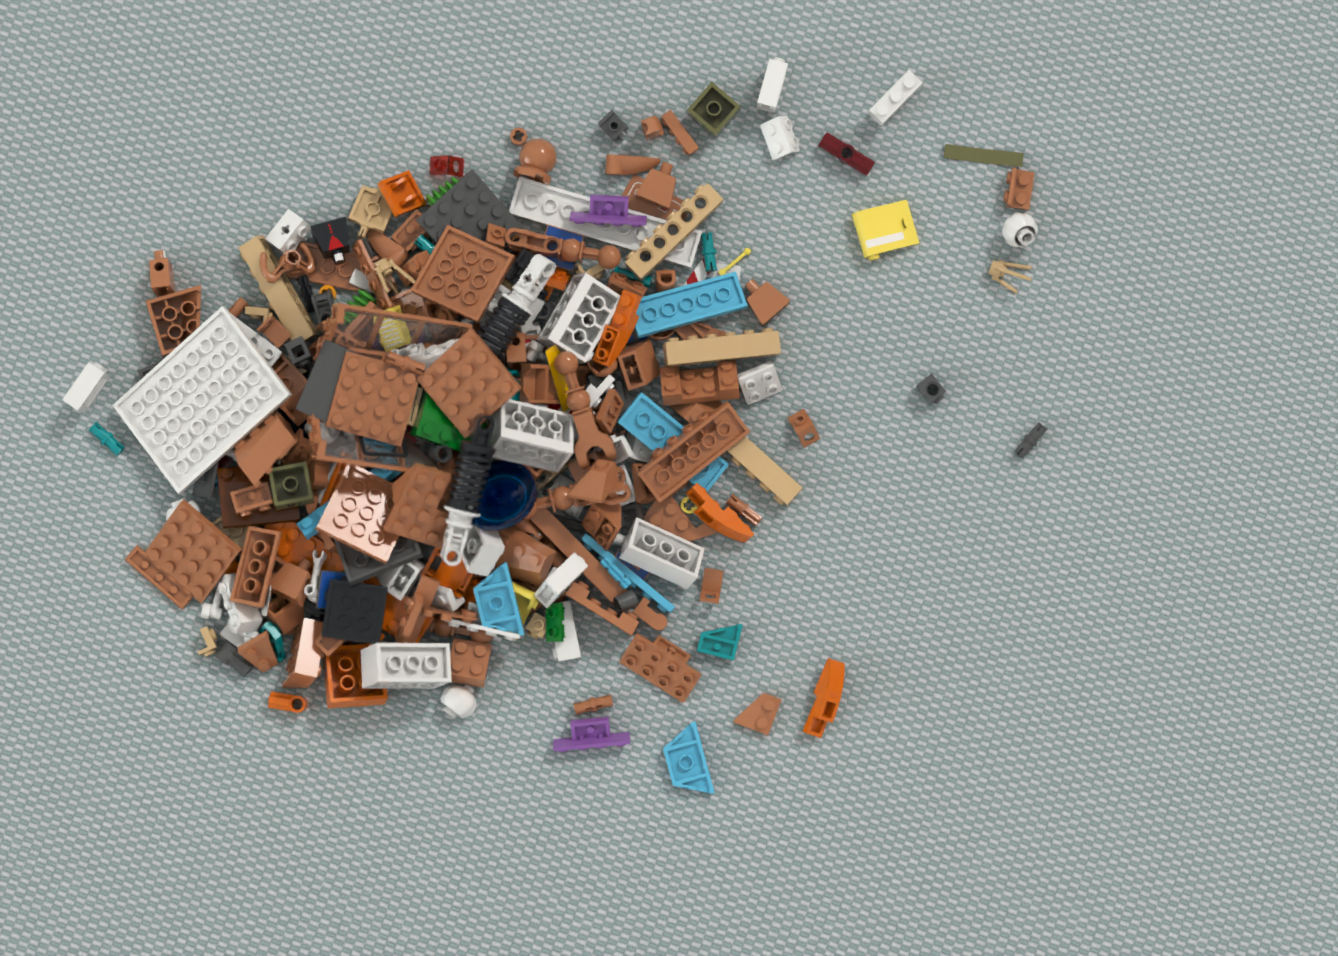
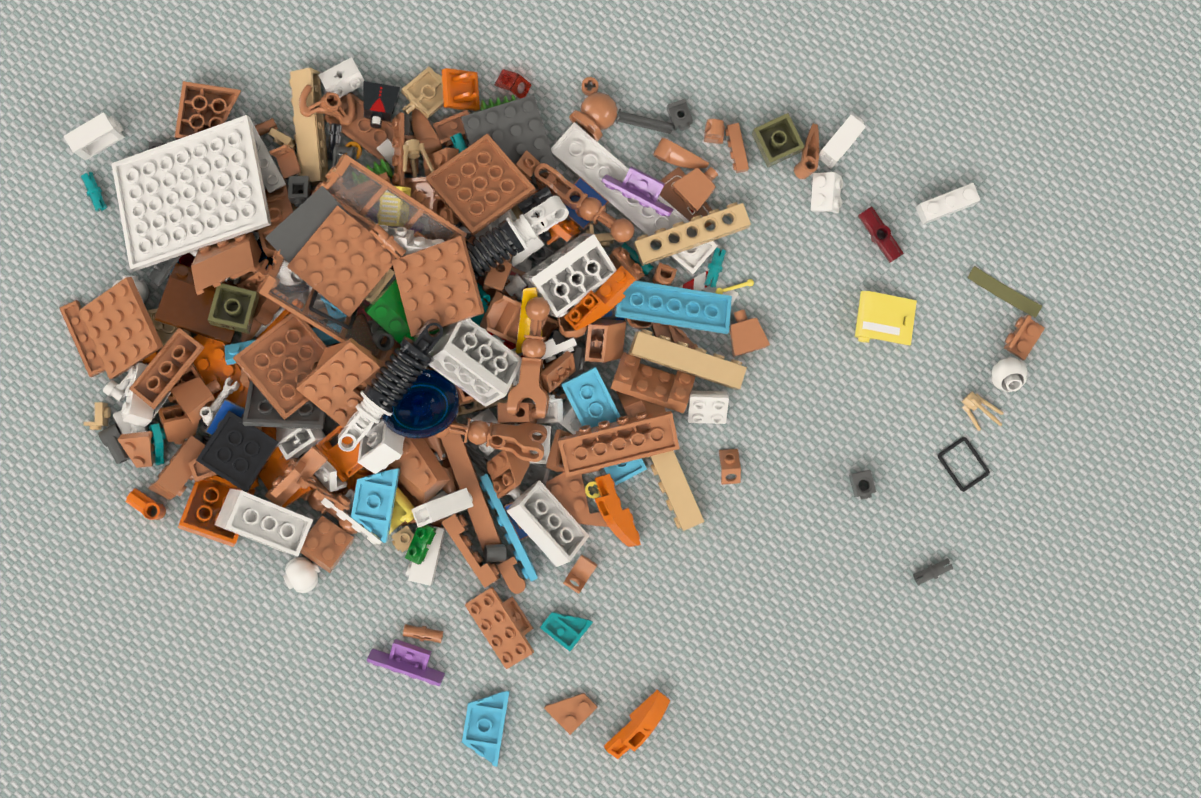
camera: 15 degrees right, 0 degrees up
(161, 274) = (210, 65): nougat torso -> none
(251, 499) = (191, 304): nougat bracket -> none
(583, 147) = (644, 122): none -> dark grey axle
(596, 482) = (515, 432): nougat slope -> none
(615, 572) = (497, 522): medium azure axle -> none
(744, 510) = (641, 517): nougat axle -> none
(749, 110) = (809, 155): none -> nougat piece
(1008, 343) = (975, 454): none -> black piece

